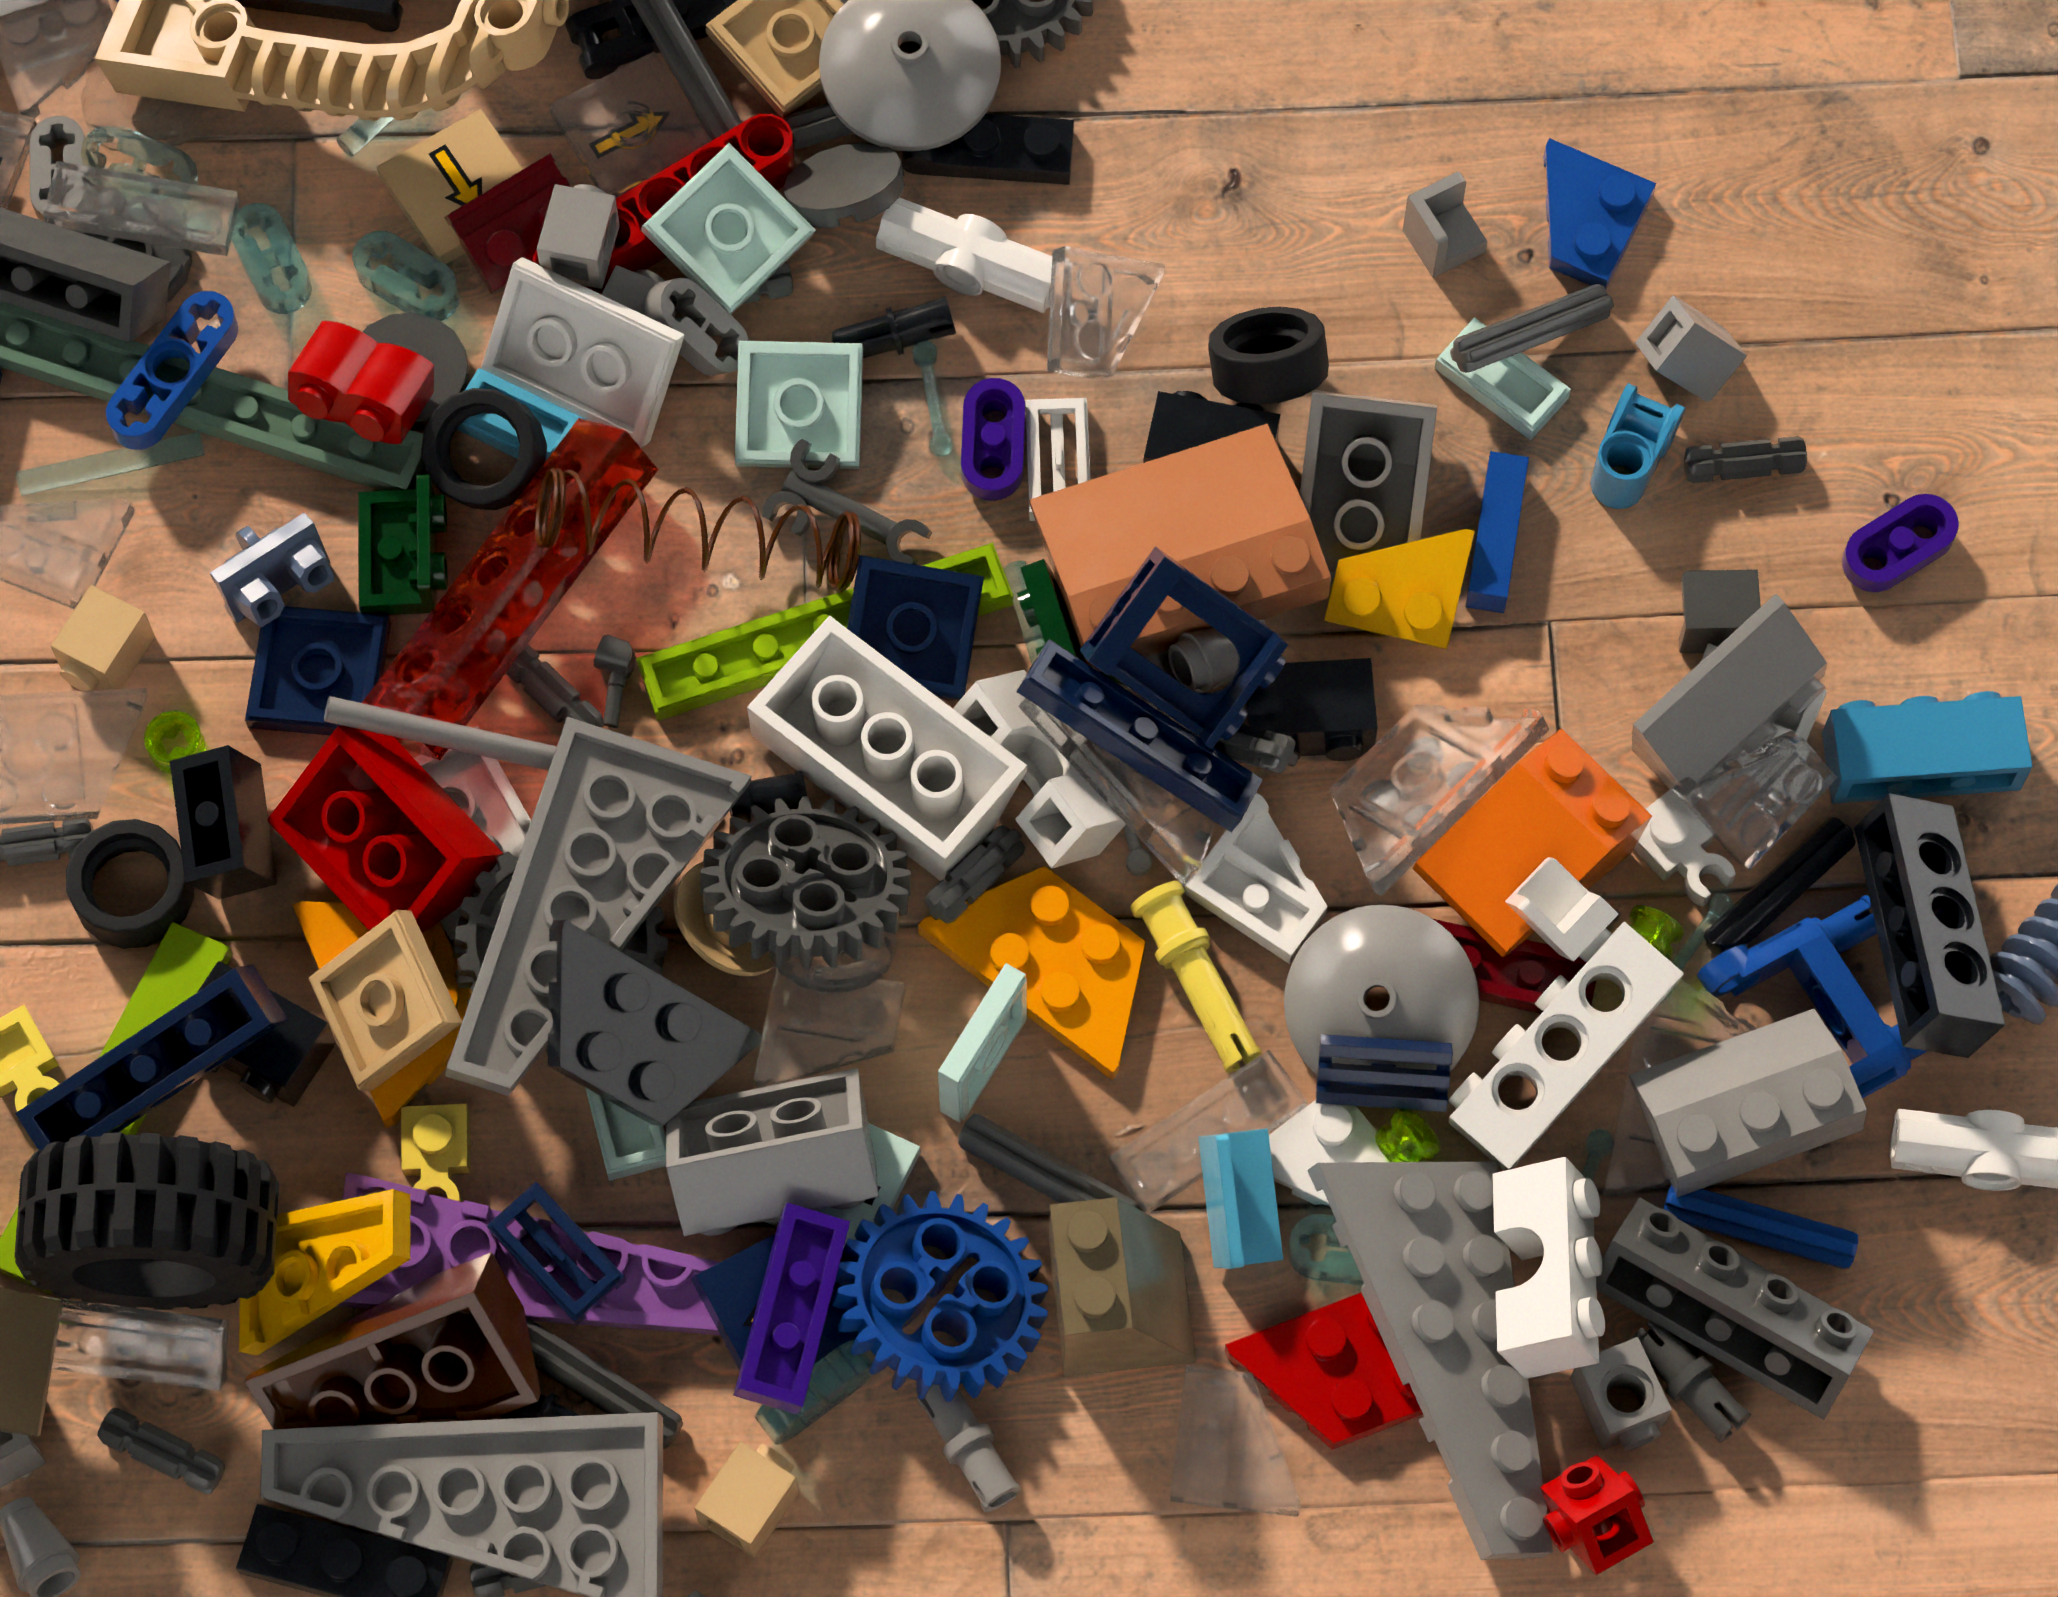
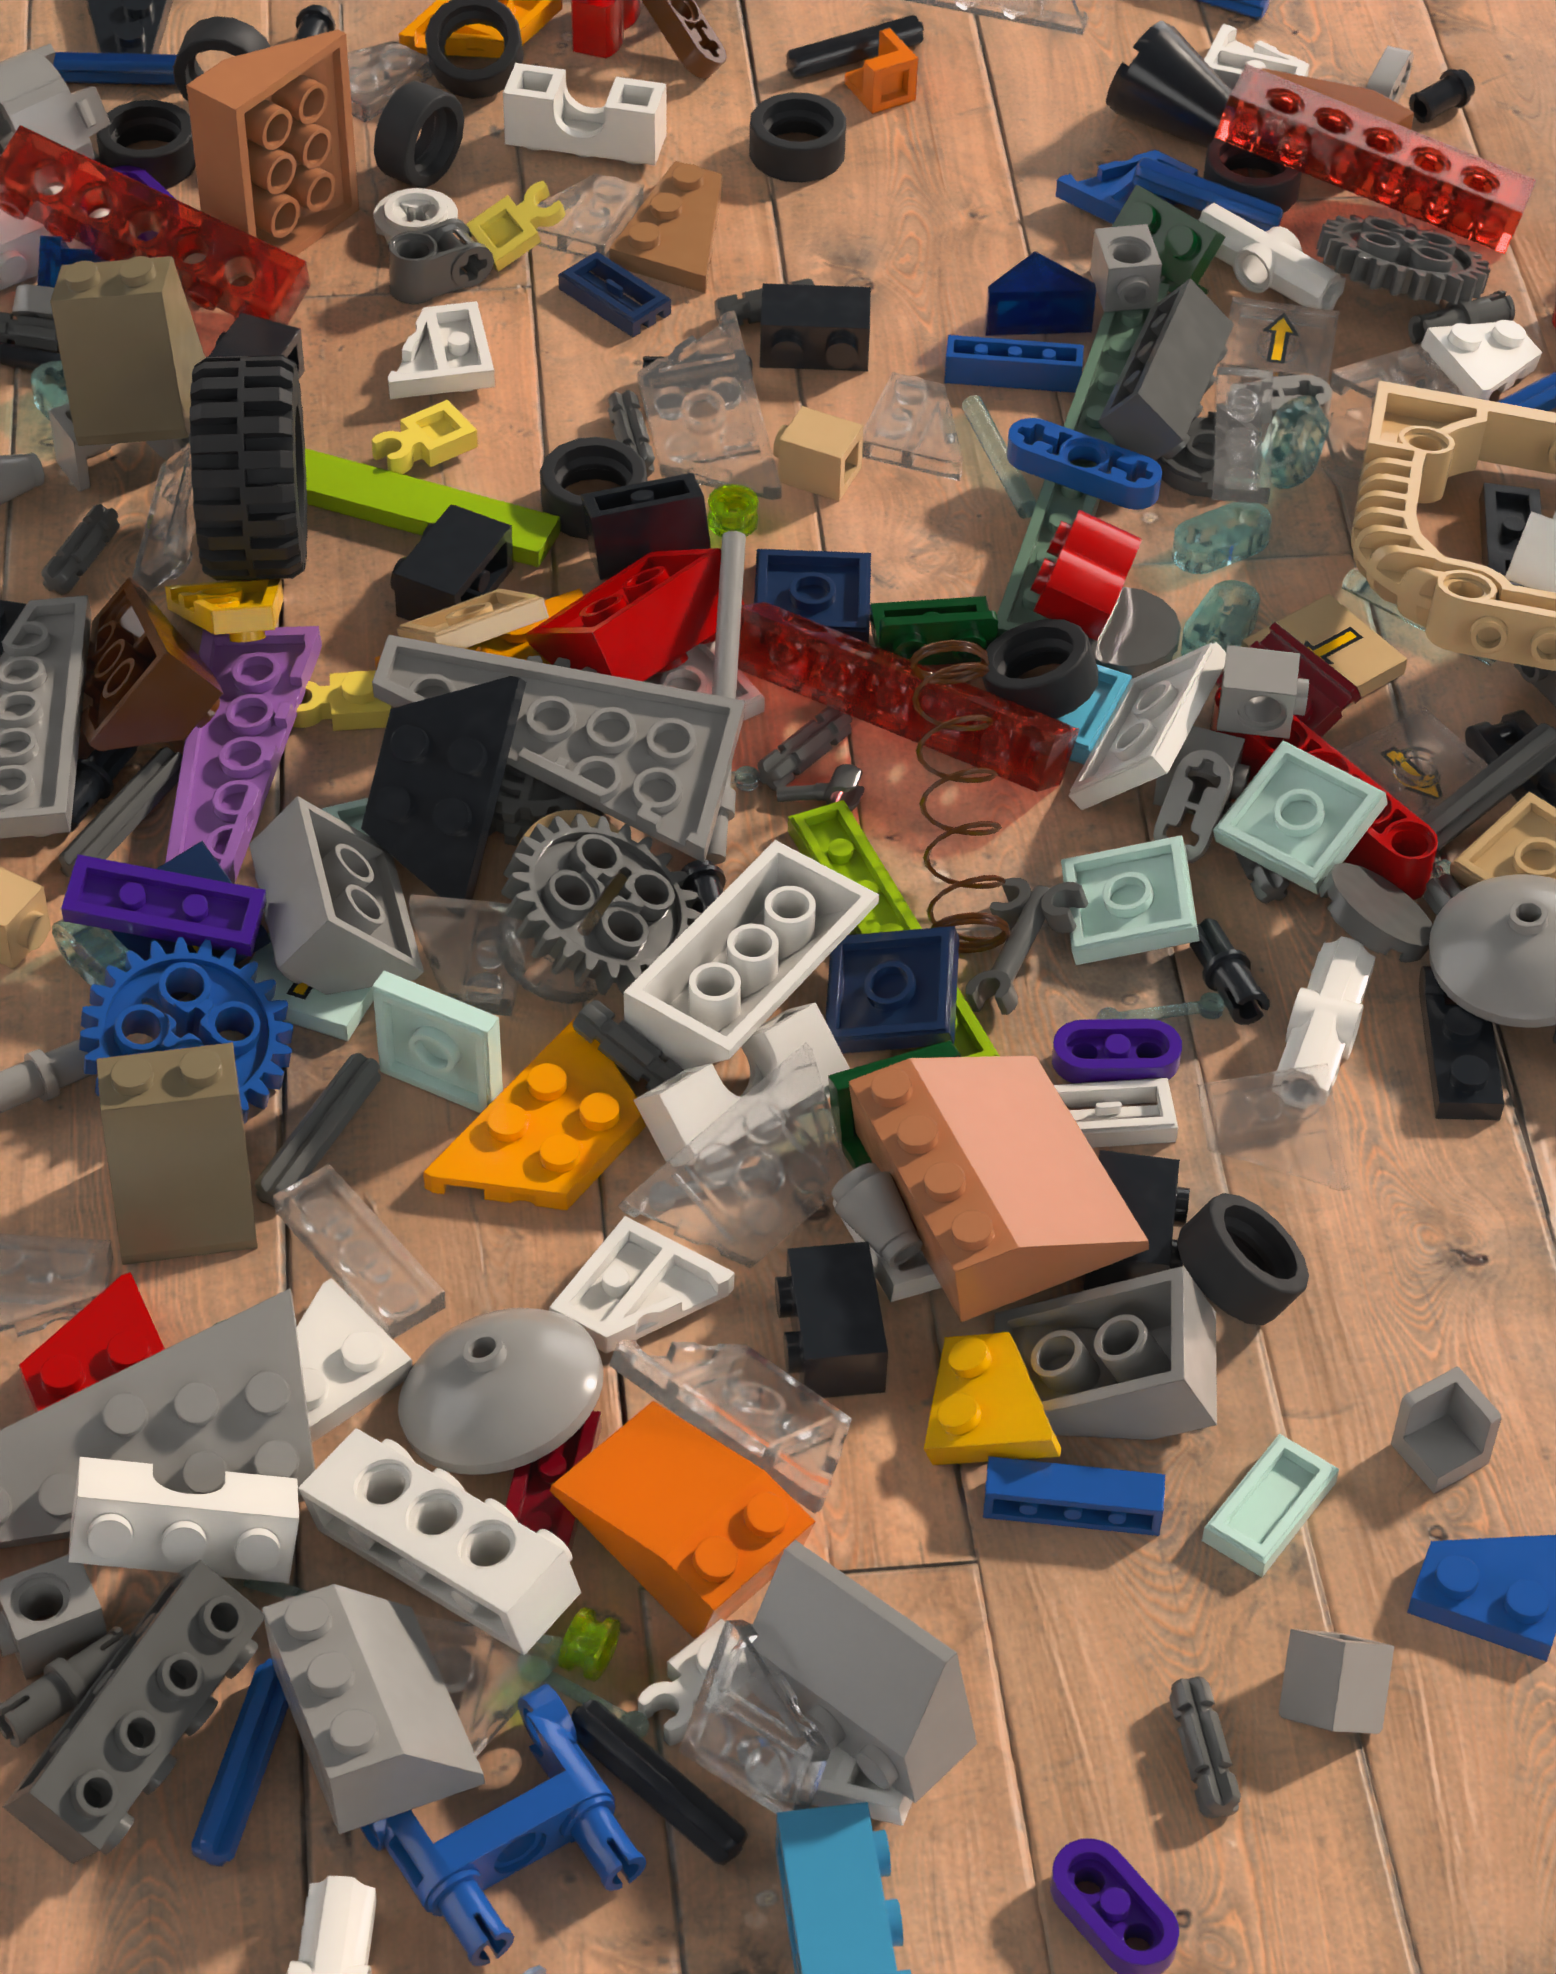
camera: 85 degrees right, 20 degrees down
(157, 1060) = (401, 472): dark blue brick -> none
(270, 567) = (904, 548): sand blue hips -> none
(593, 1293) = (242, 764): dark blue tile -> none
(1139, 735) = (768, 1142): dark blue tile -> none
(1184, 950) = (556, 1225): light yellow pin -> none
(1204, 714) = (851, 1079): dark blue panel -> none
(1240, 1198) = (277, 1250): medium azure panel -> none
(1260, 748) = (770, 1239): dark grey axle -> none
(1330, 1076) = (411, 1375): dark blue tile -> none
(1407, 1139) = (339, 1395): clear neon green bush -> none
(1531, 328) = (1330, 1515): dark grey axle -> none
(1561, 909) = (585, 1505): white panel -> none
(1636, 439) = (1201, 1622): dark azure piece -> none
(1716, 606) = (1001, 1706): dark grey panel -> none
(1928, 926) = (711, 1879): black brick -> none

